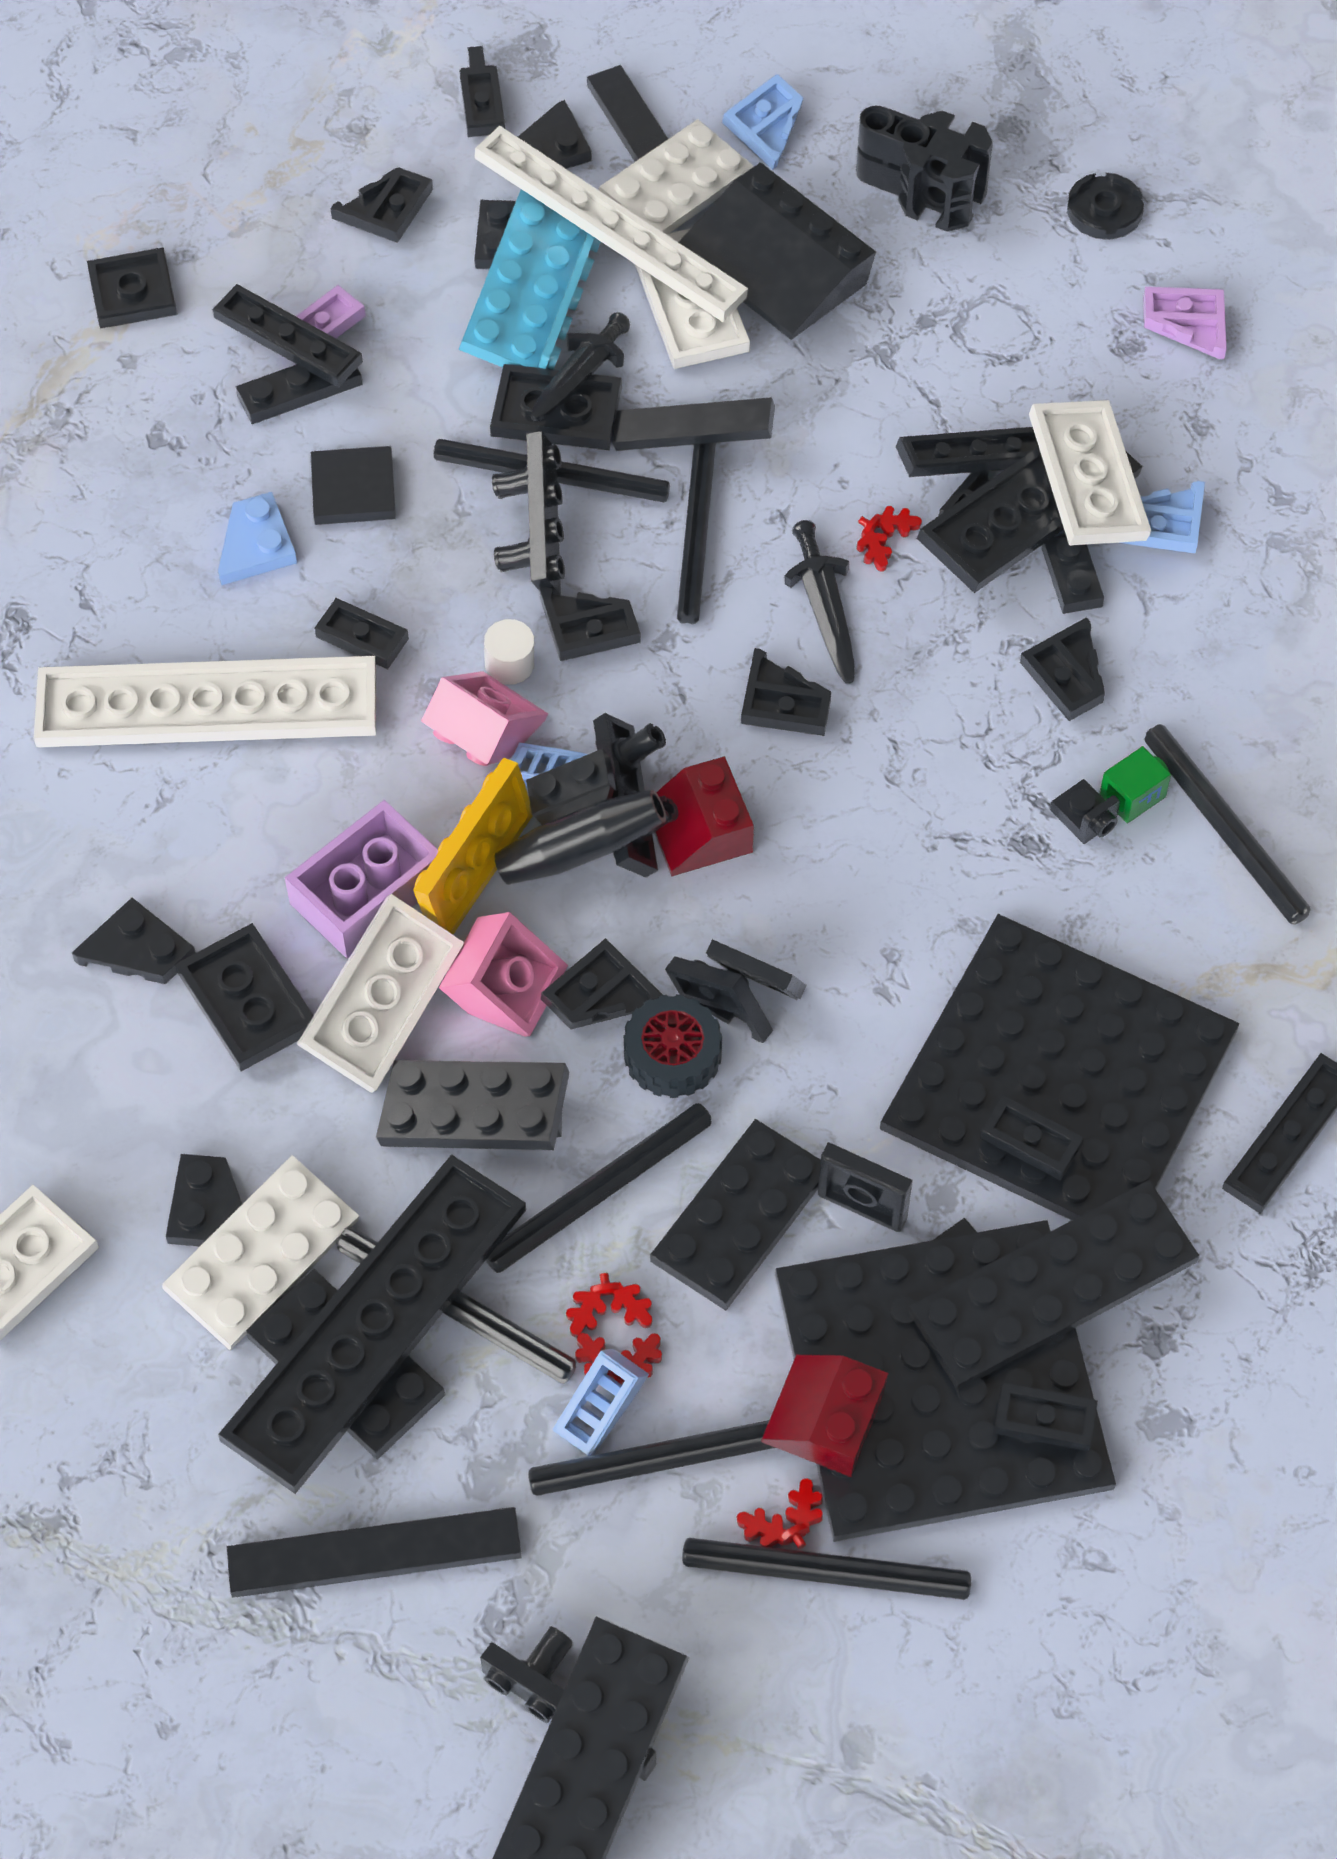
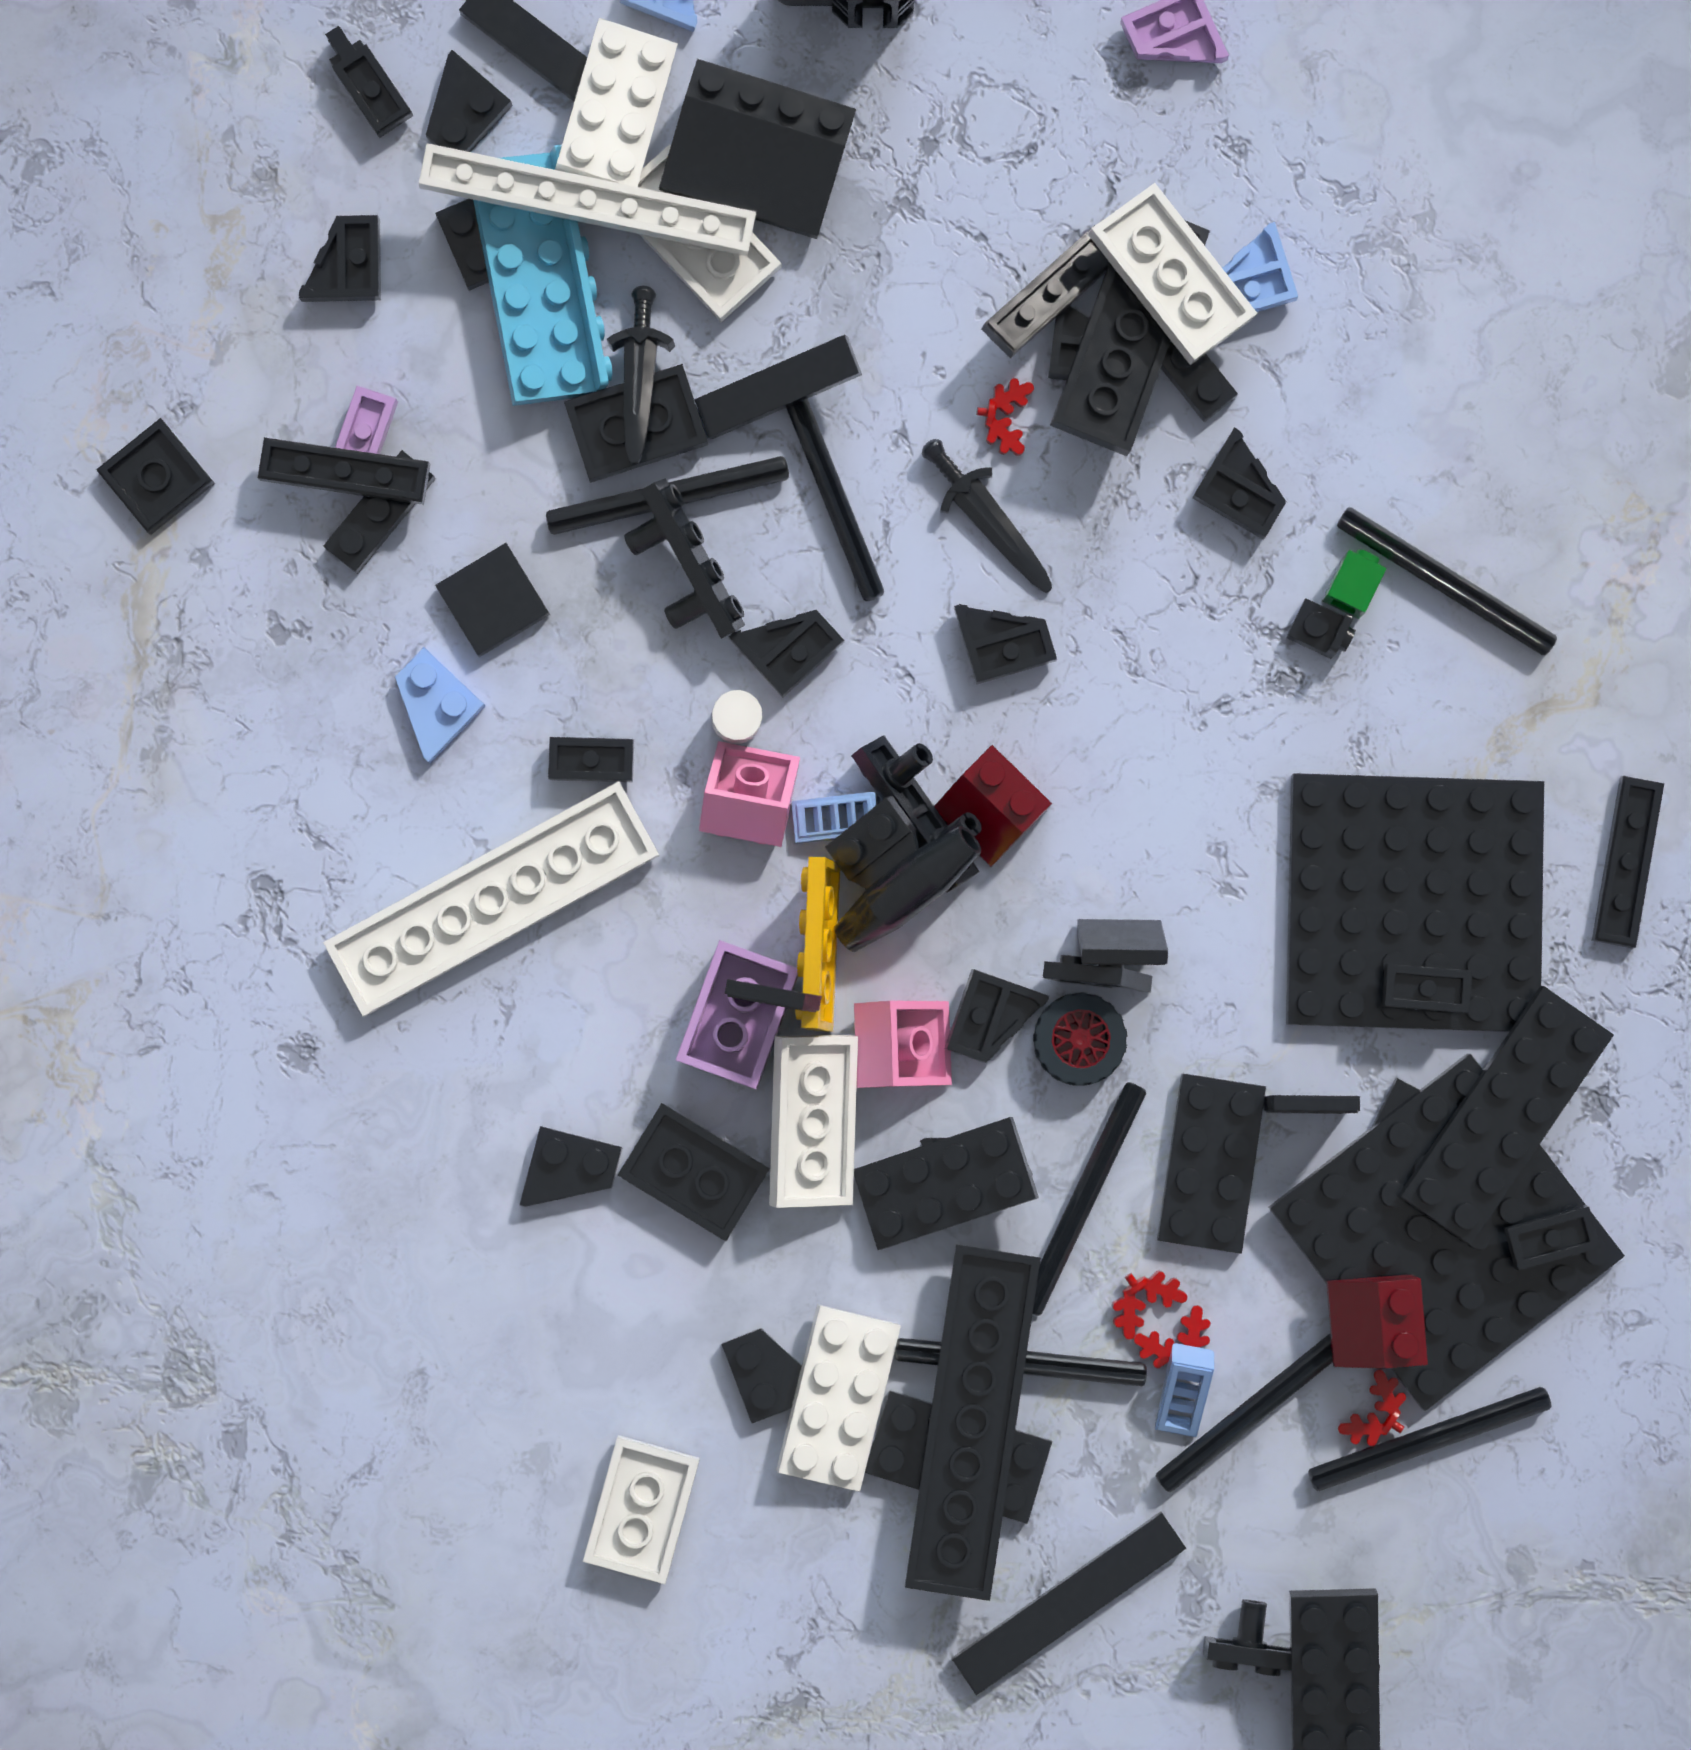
camera: 25 degrees left, 25 degrees up
(402, 846) = (772, 996): none -> black tile

